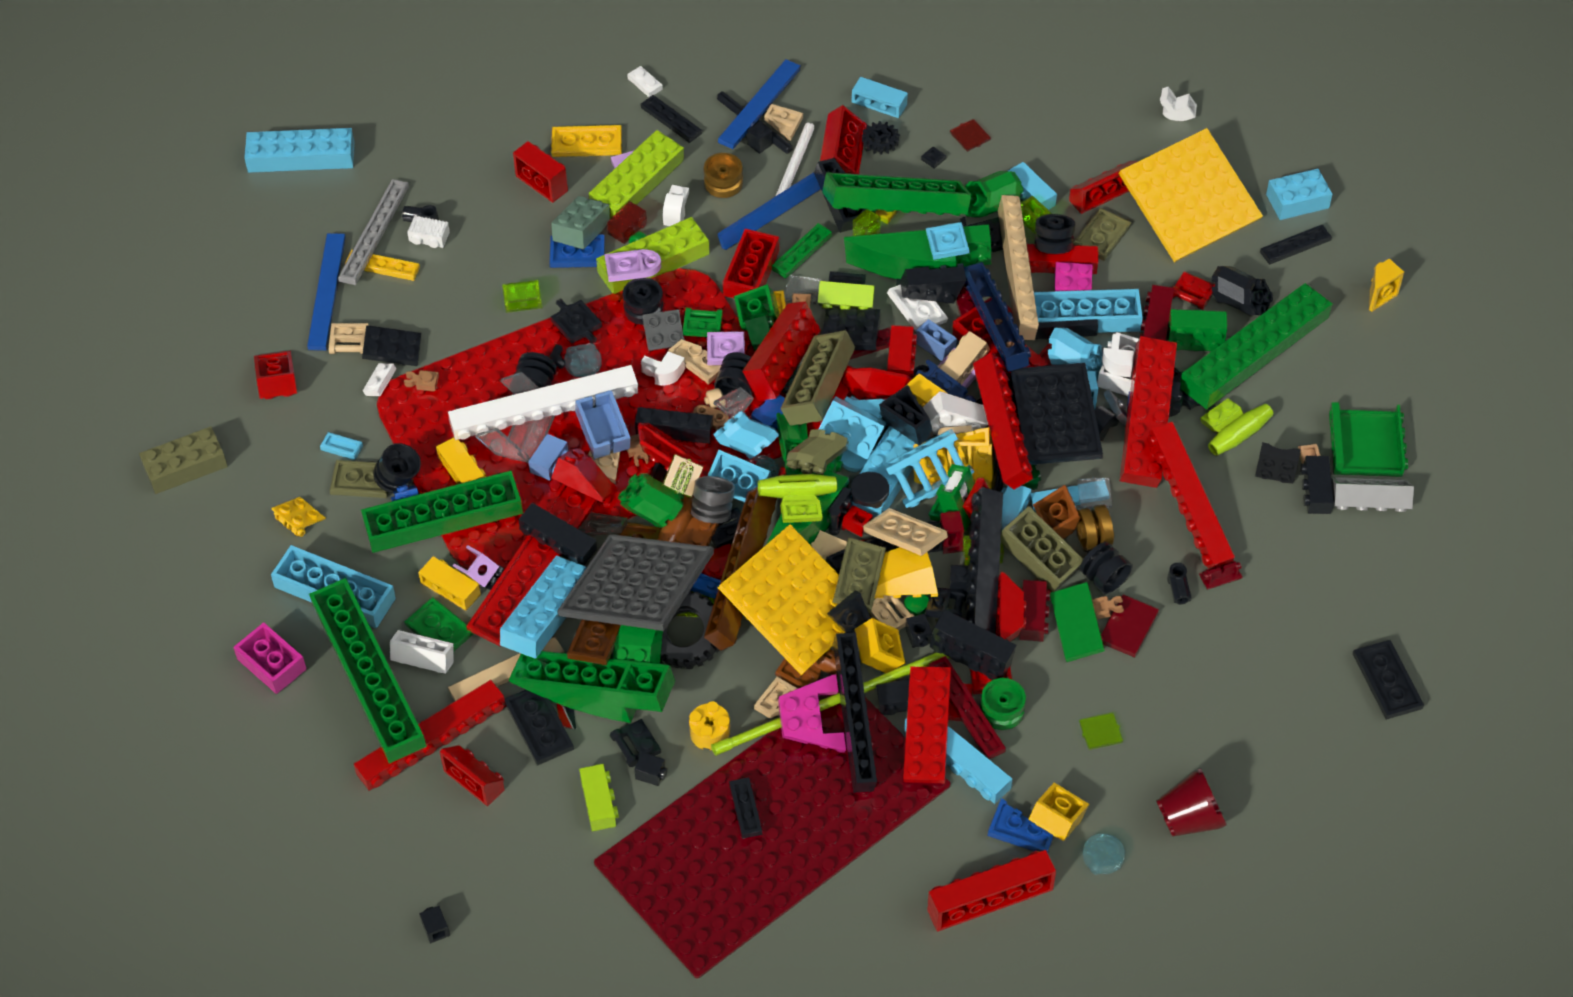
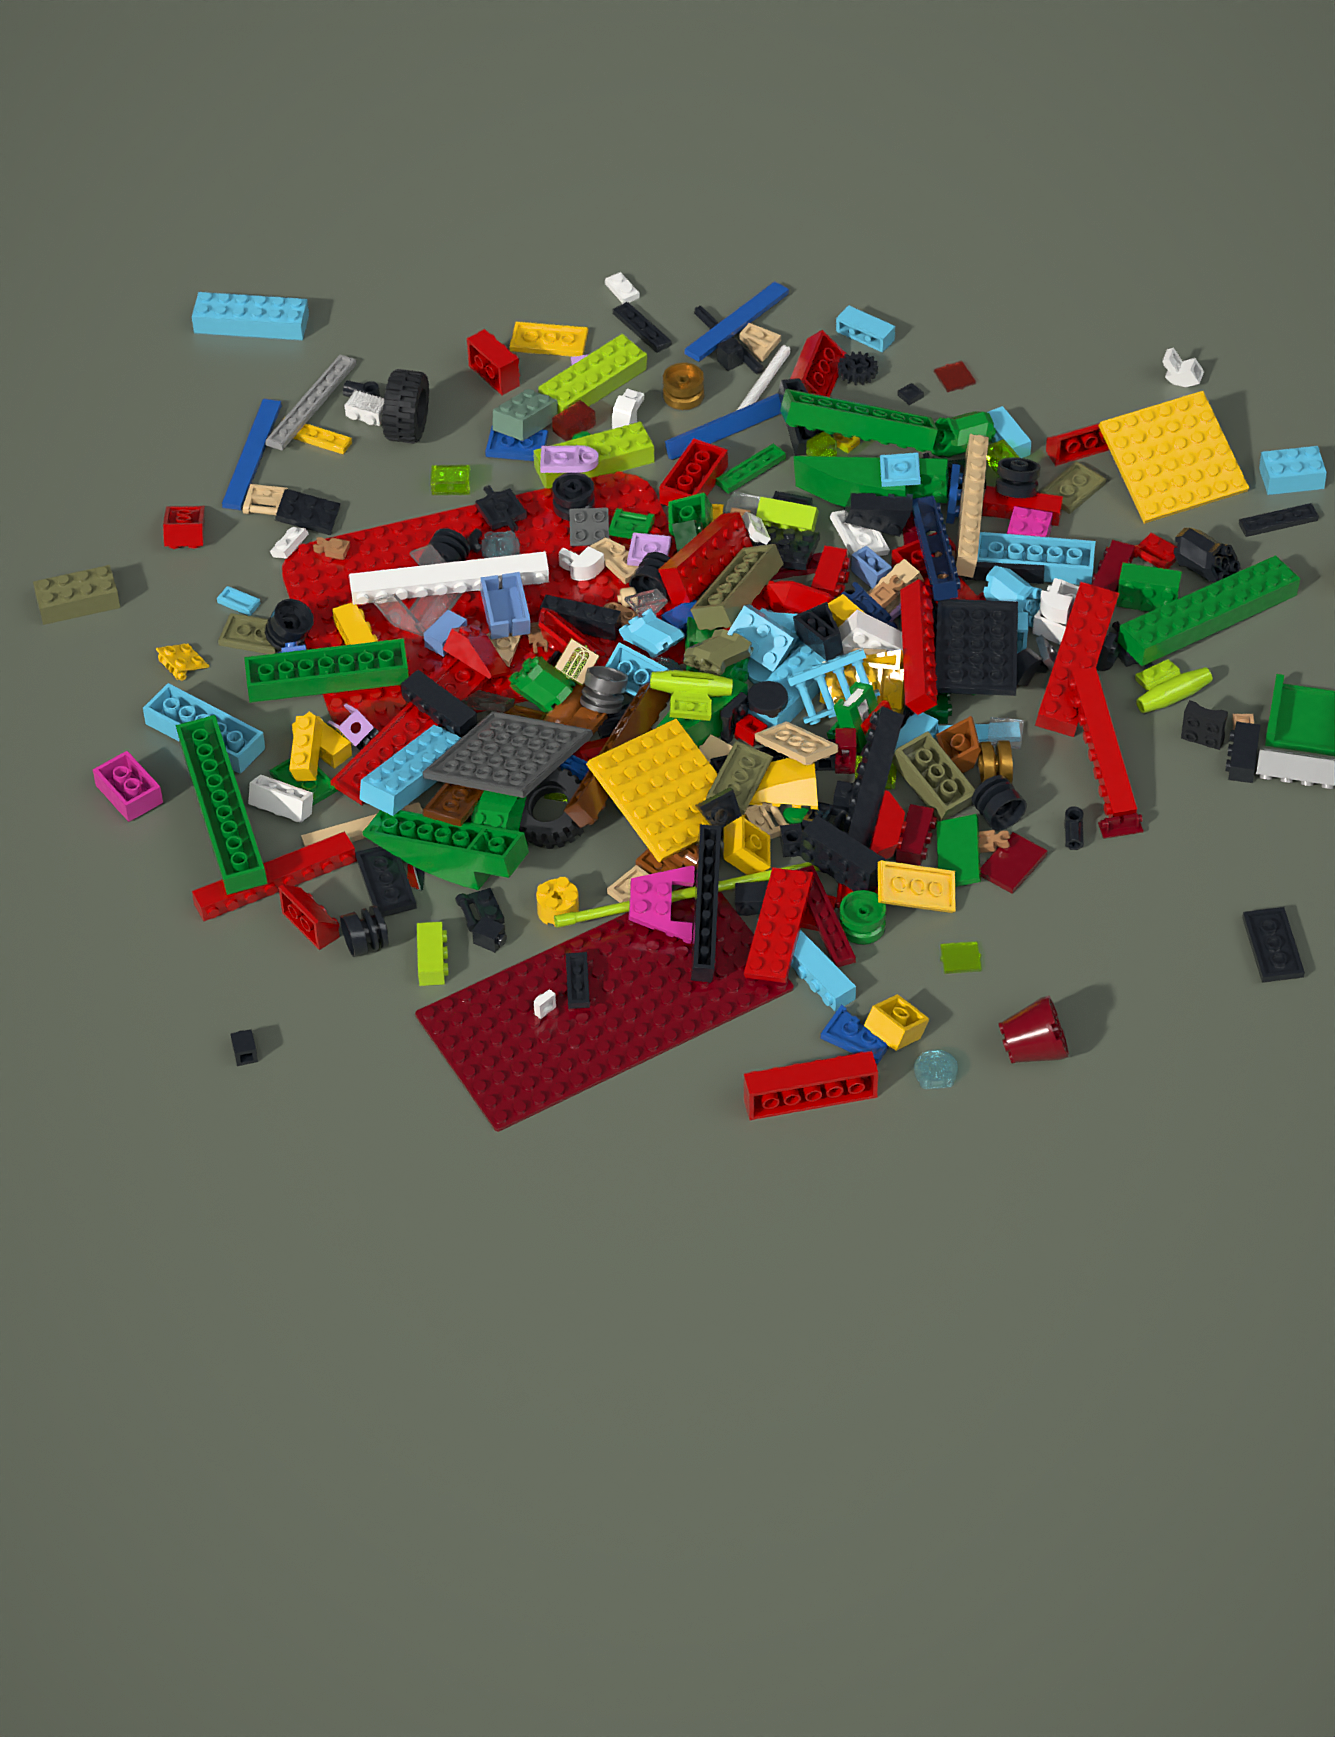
camera: 10 degrees right, 5 degrees down
(437, 597) = (306, 748): none -> yellow brick
(467, 228) = (405, 406): none -> black tyre
(533, 782) = (368, 929): none -> black wheel
(718, 838) = (544, 1003): none -> white plate
(821, 313) = (756, 528): none -> white plate
(958, 367) = (886, 593): none -> medium nougat plate
(997, 255) = (954, 494): none -> blue plate
(1048, 667) = (916, 886): none -> yellow tile

